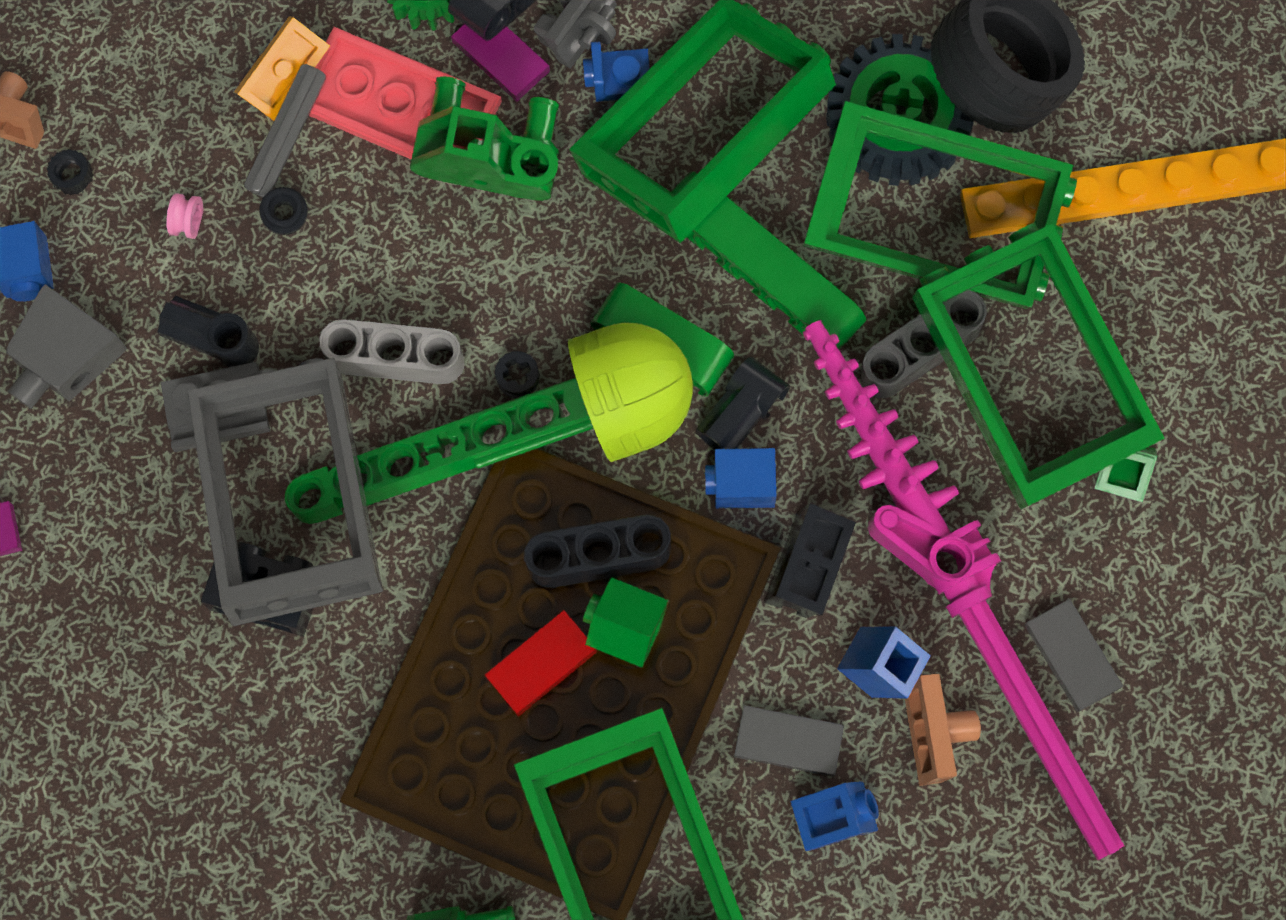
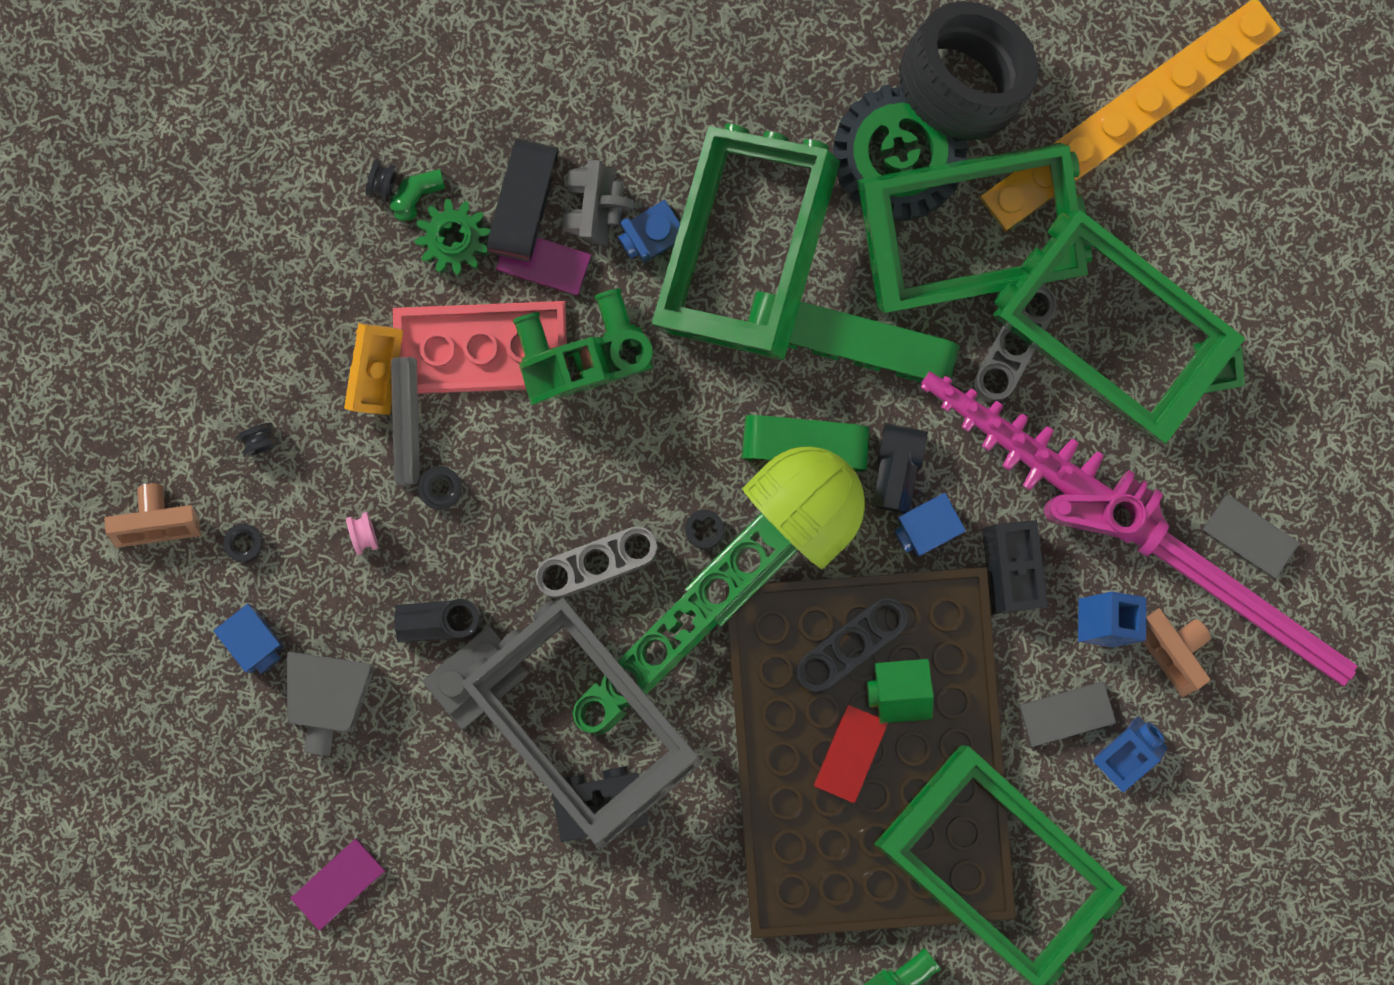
camera: 30 degrees left, 10 degrees up
(138, 83) = (258, 439): none -> black bush

